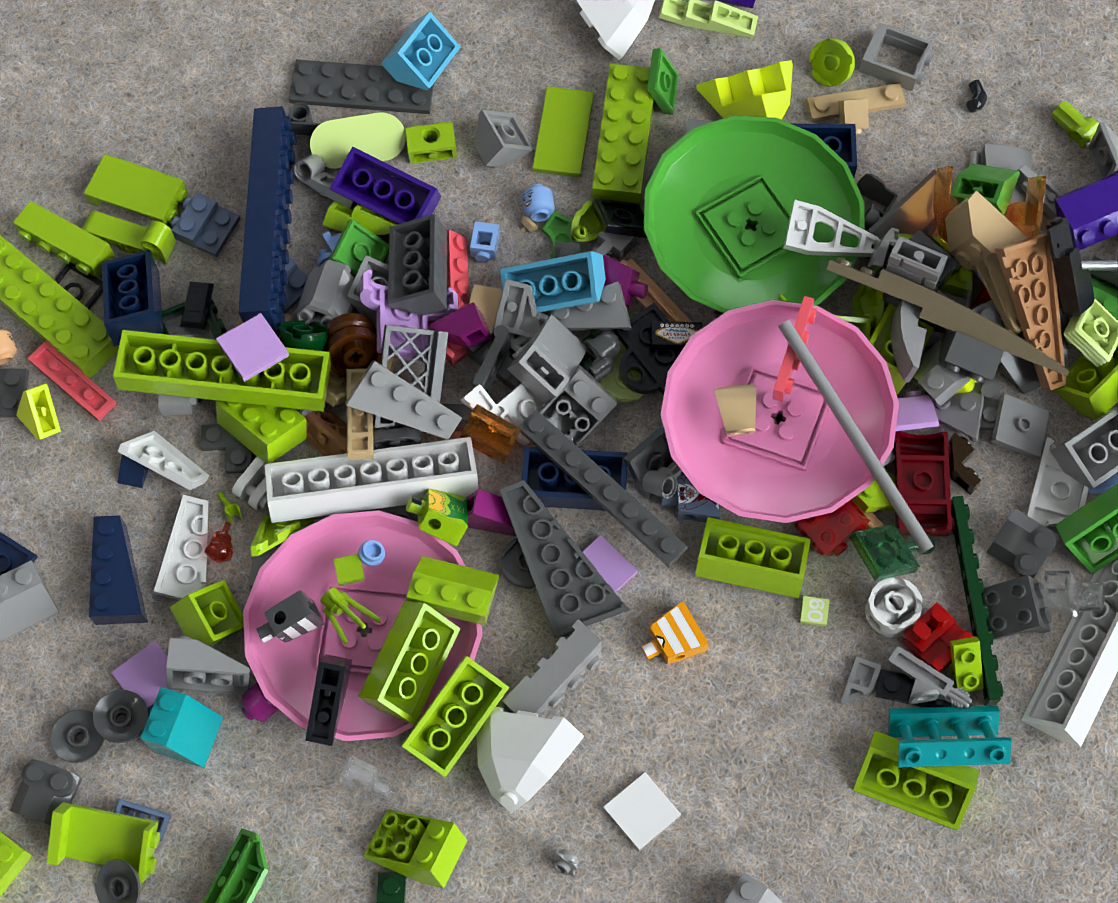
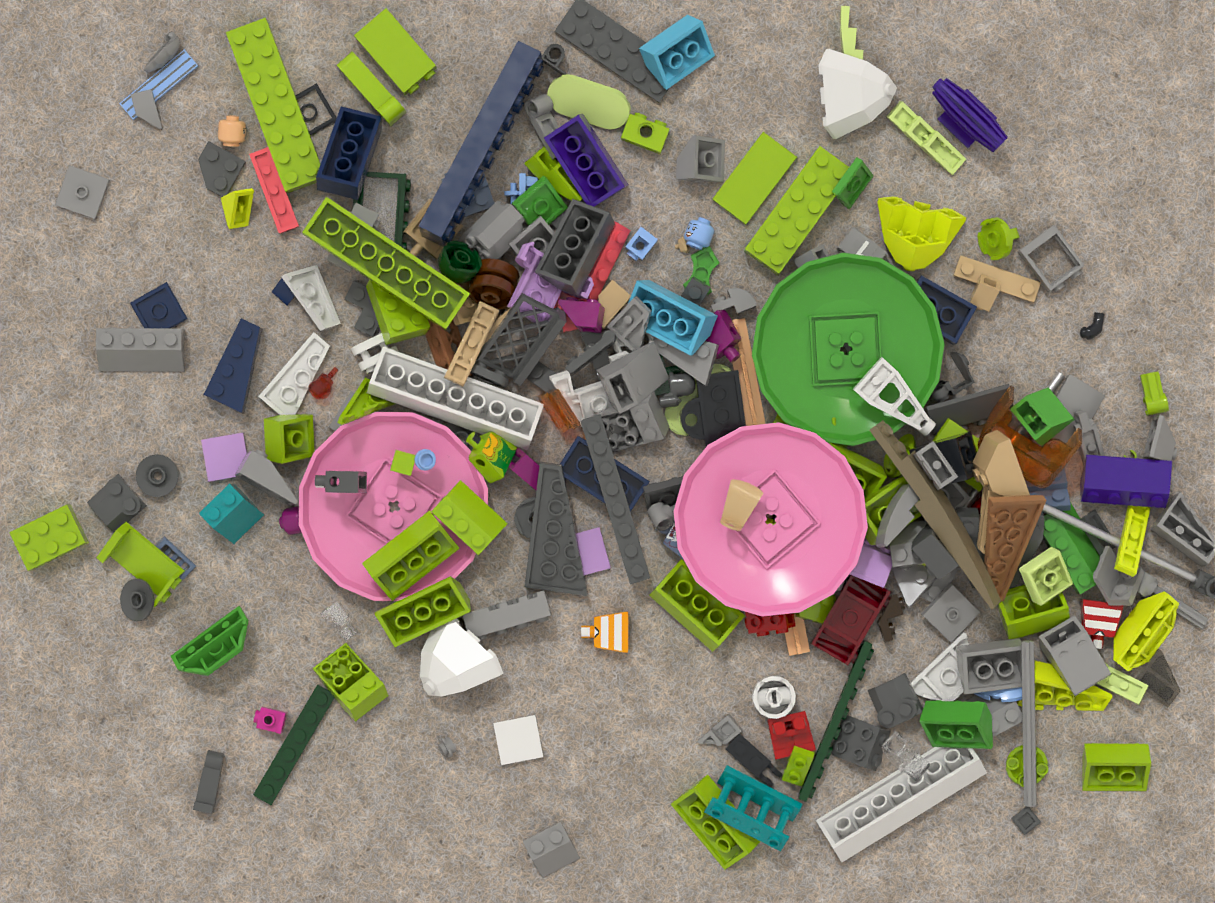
camera: 30 degrees right, 20 degrees up
(63, 239) = (321, 65): lime brick -> none
(116, 704) = (204, 475): dark grey dish -> none
(197, 305) = (395, 183): black tile -> none
(204, 224) = (435, 109): sand blue plate -> none
(230, 508) = (343, 359): lime hand -> none
(252, 347) = (414, 262): lavender tile -> none
(328, 699) = (341, 552): black slope -> none
(338, 603) = (381, 484): lime plant -> none
(399, 401) = (504, 357): light grey wedge -> none
(584, 223) = (734, 267): lime arm -> none
(619, 217) = (752, 284): black tile -> none
(672, 334) = (739, 406): tile -> none
(791, 362) = (813, 477): coral plate -> none
(814, 611) = (719, 666): yellowish green tile -> none
(856, 436) = (809, 575): light grey piece -> none
(887, 242) = (928, 429): light grey slope -> none
(887, 552) = (791, 657): clear green plate -> none
(928, 682) = (764, 761): light grey piece -> none
(1072, 280) = (1046, 538): black piece -> none

